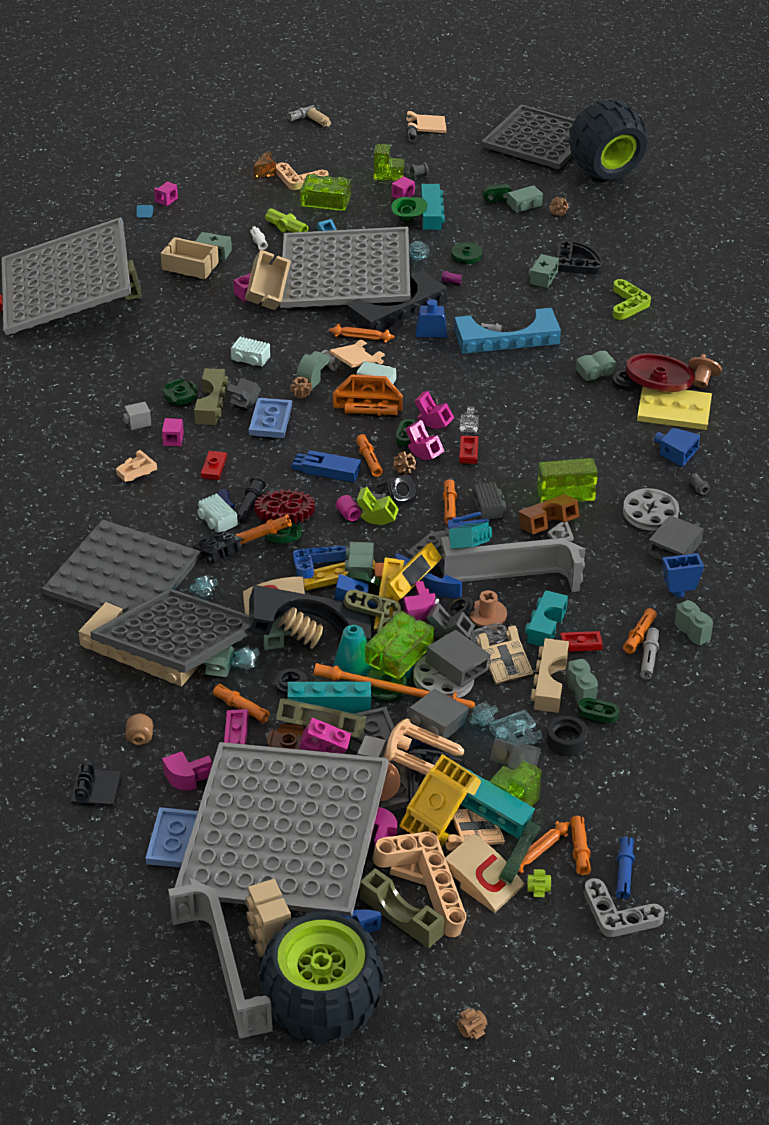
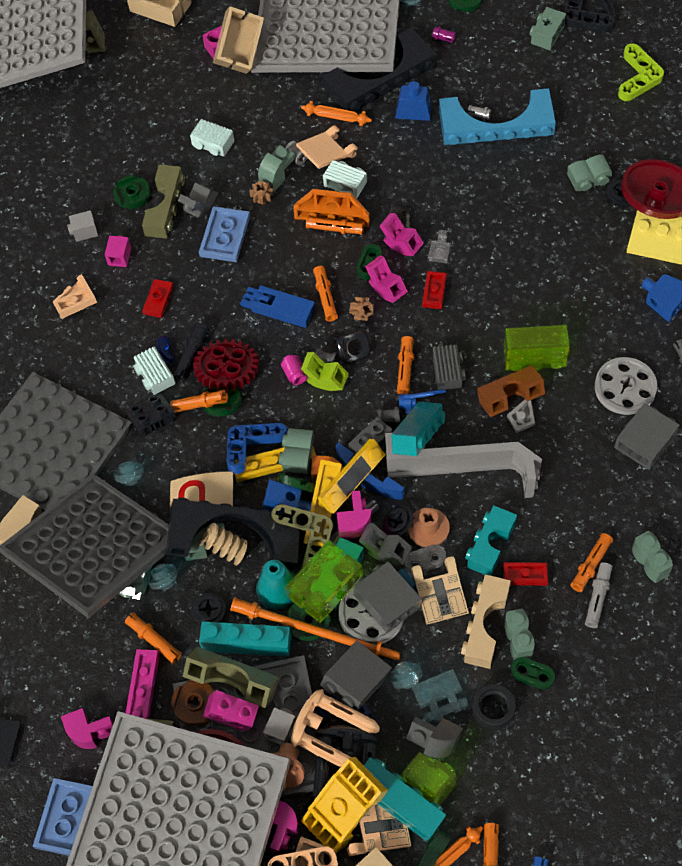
camera: 10 degrees right, 20 degrees up
(139, 728) = (43, 667): medium nougat head -> none
(682, 573) = (647, 492): blue torso -> none

